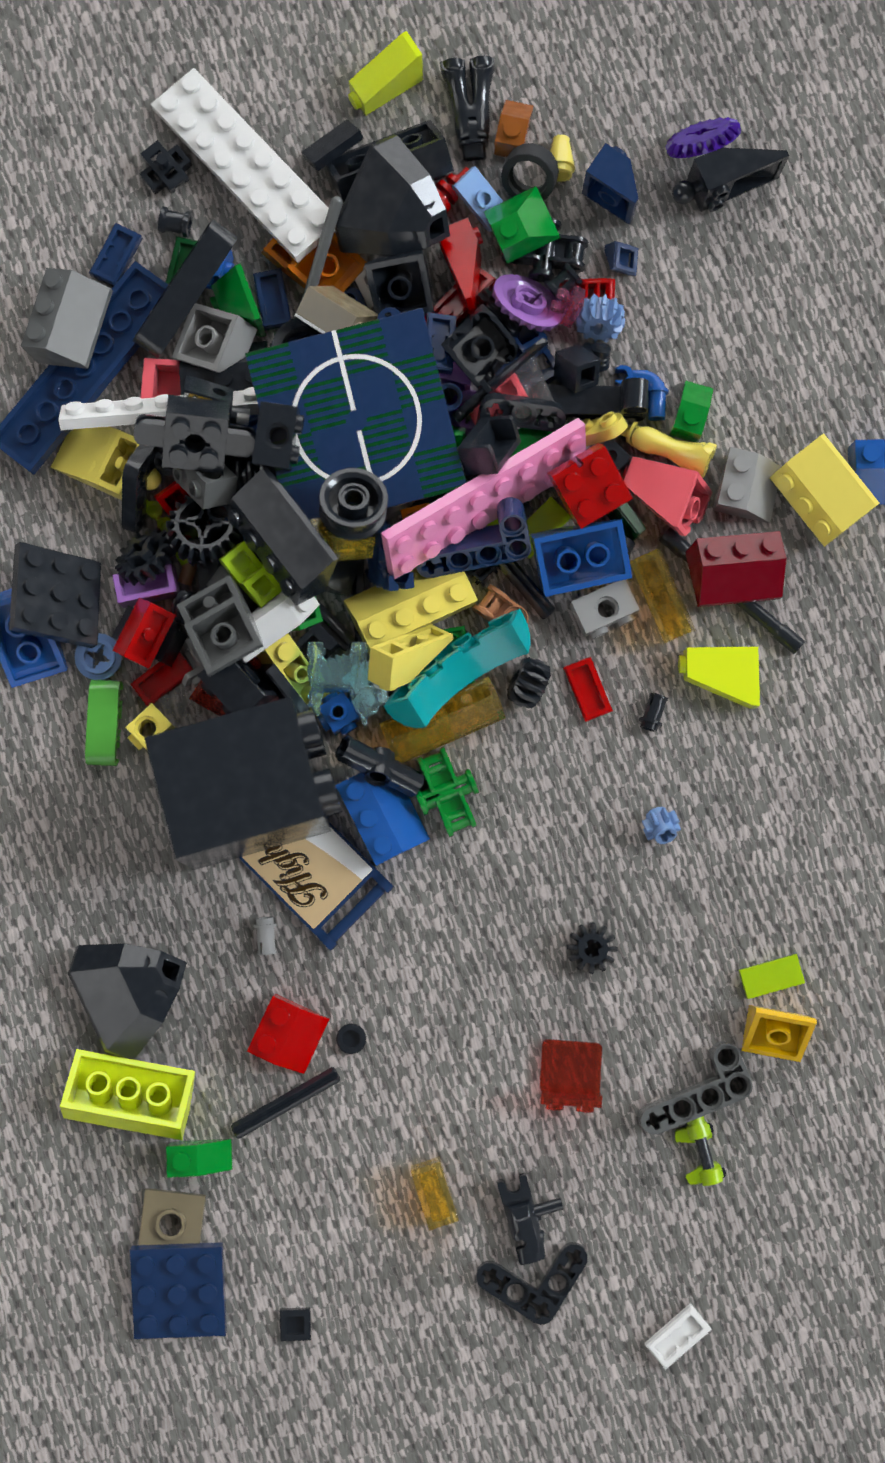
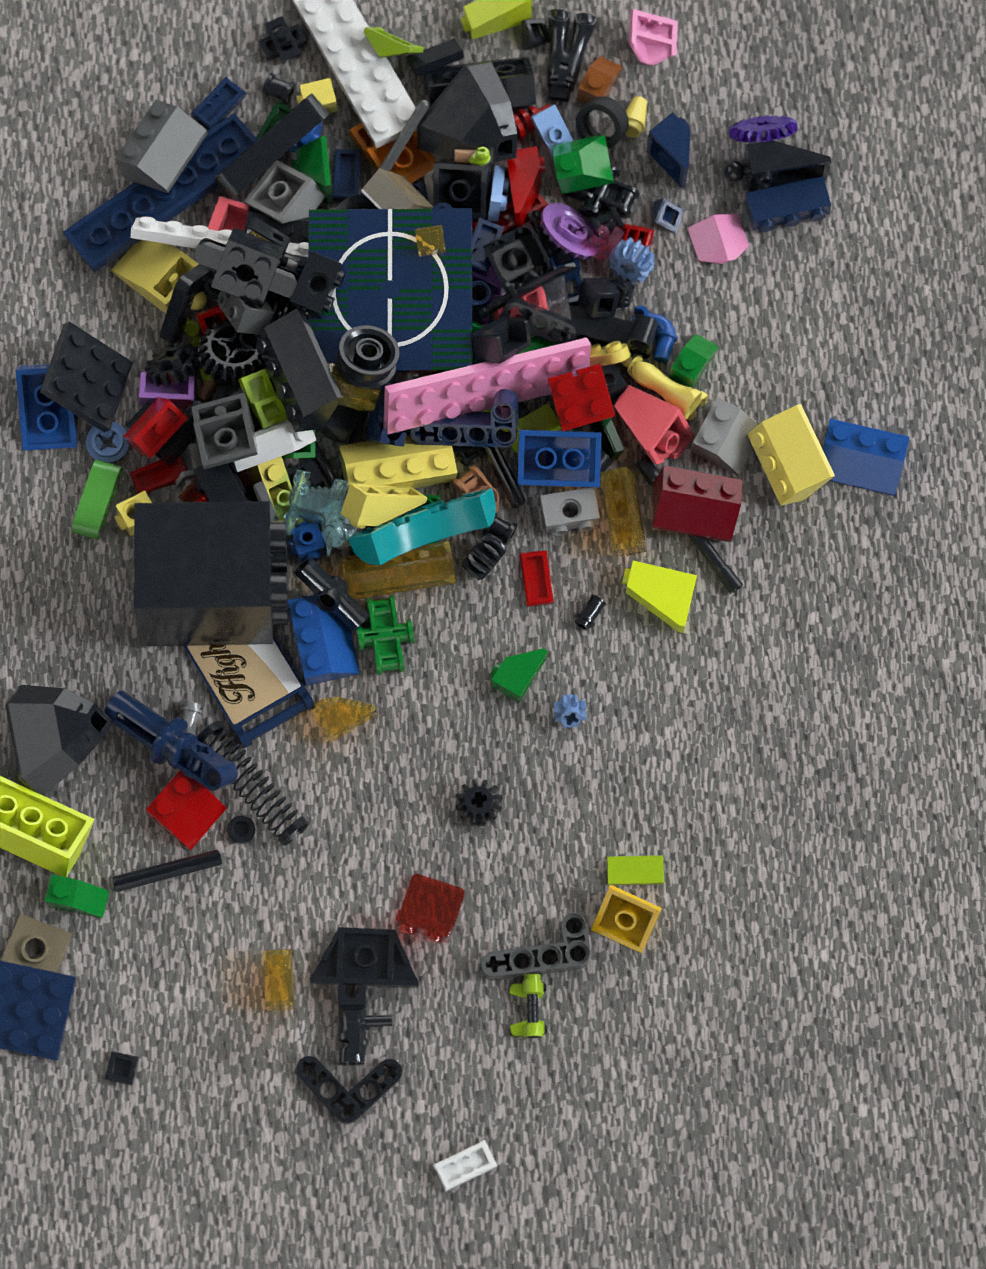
camera: 10 degrees right, 10 degrees down
(223, 214) = (322, 91): none -> light yellow brick
(254, 971) = (171, 742): none -> dark blue piece
(279, 143) = (388, 44): none -> lime slope
(286, 955) = (300, 823): none -> black piece
(387, 355) = (430, 240): none -> clear yellow slope
(411, 246) = (477, 157): none -> arm
(422, 892) = (341, 715): none -> clear yellow slope
(428, 95) = (531, 34): none -> black slope
(438, 273) = (497, 200): none -> light blue plate
(517, 1145) = (365, 958): none -> black wing
(540, 646) = (501, 529): none -> black bush
(556, 65) = (652, 37): none -> bright pink slope
(596, 798) = (517, 673): none -> green slope
(683, 271) = (718, 238): none -> bright pink slope
(747, 214) = (788, 204): none -> dark blue brick

